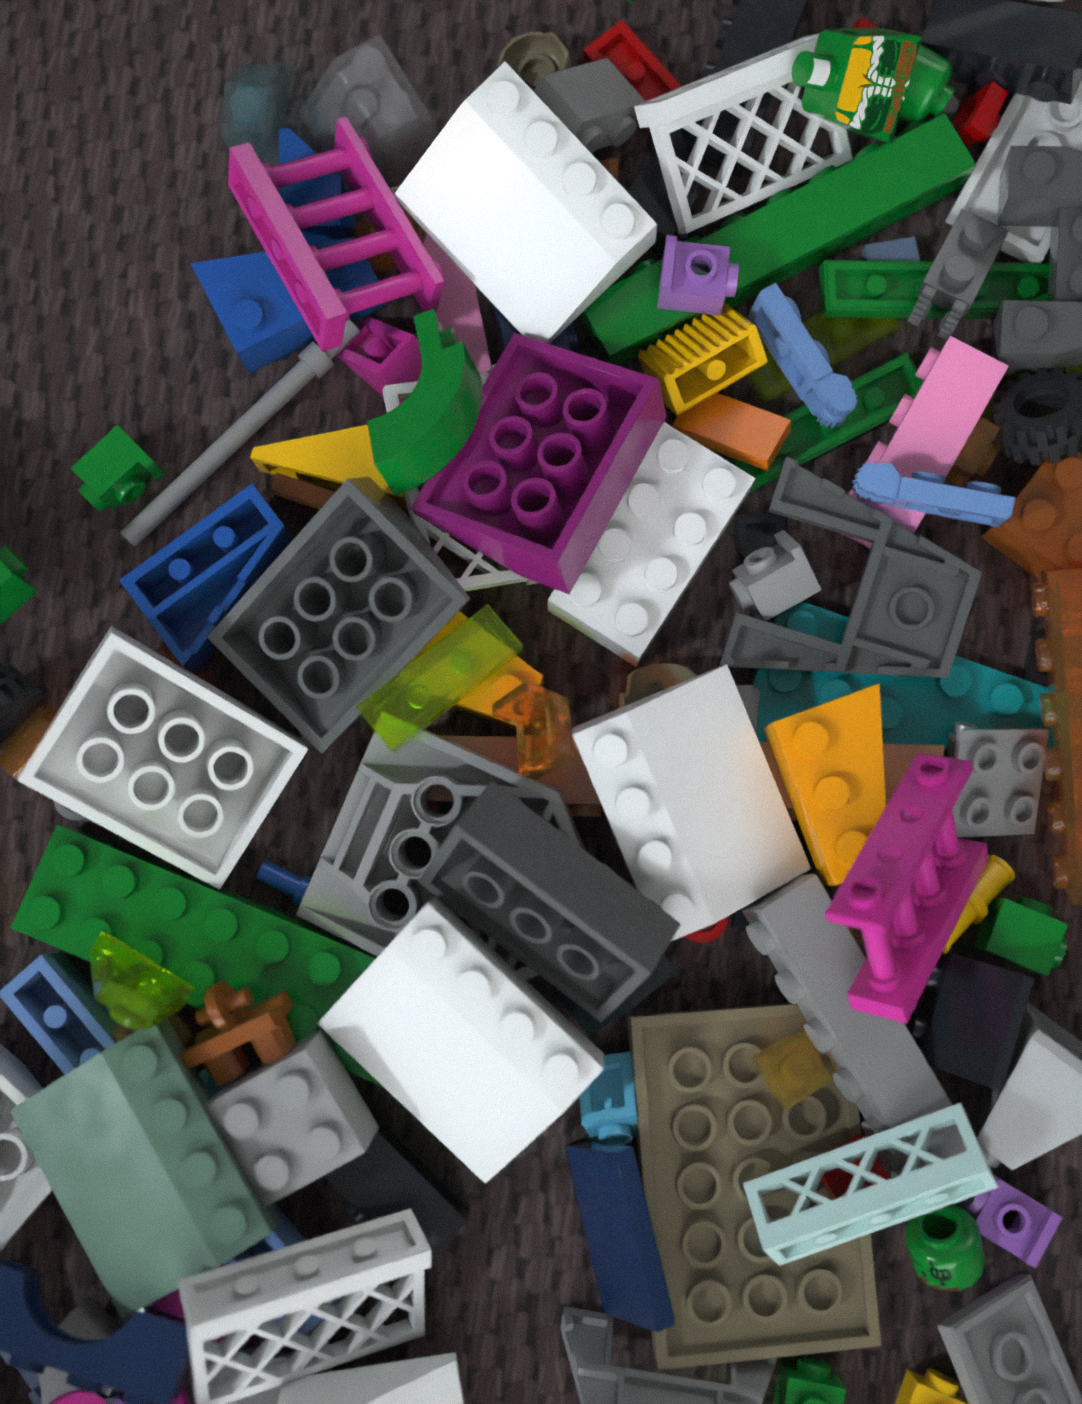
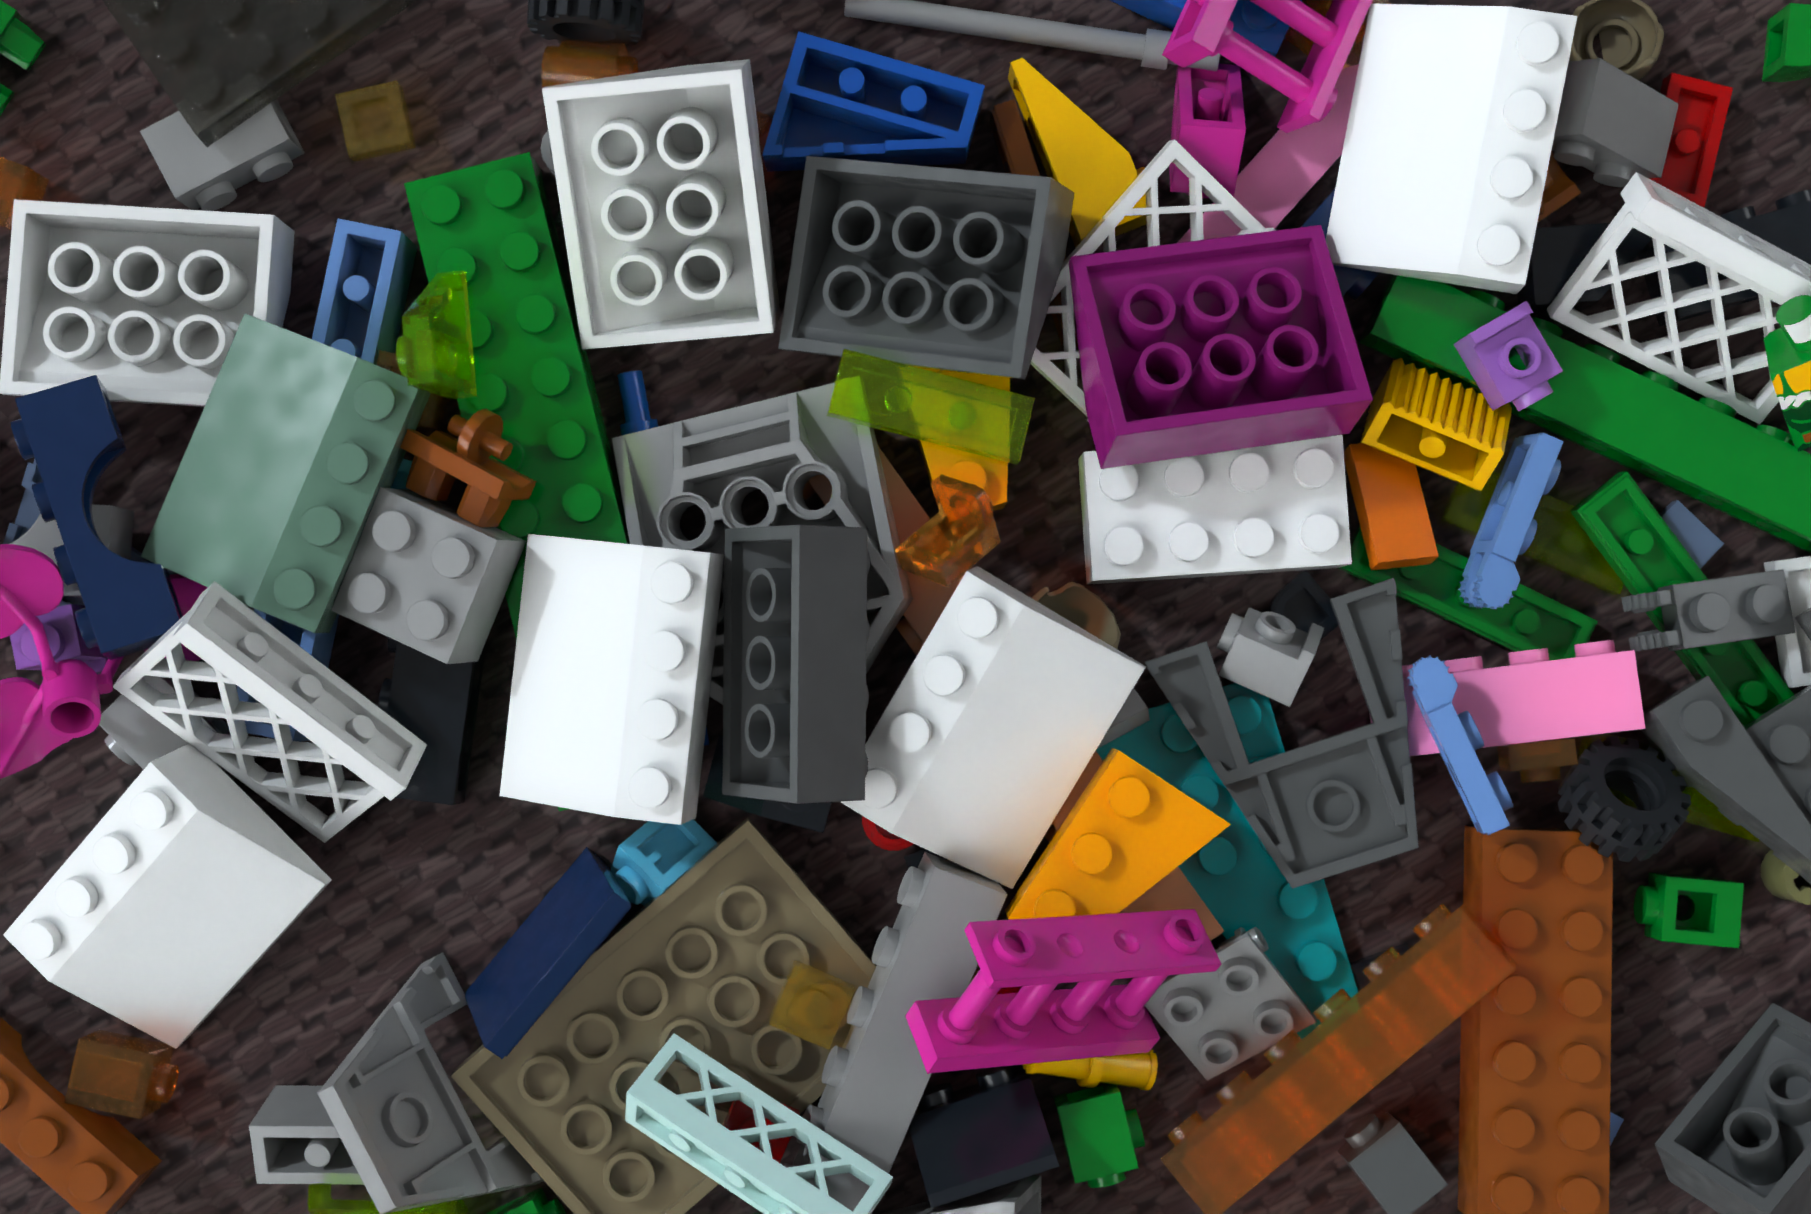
camera: 45 degrees right, 5 degrees up
(437, 415) = (1179, 215): green arch -> none

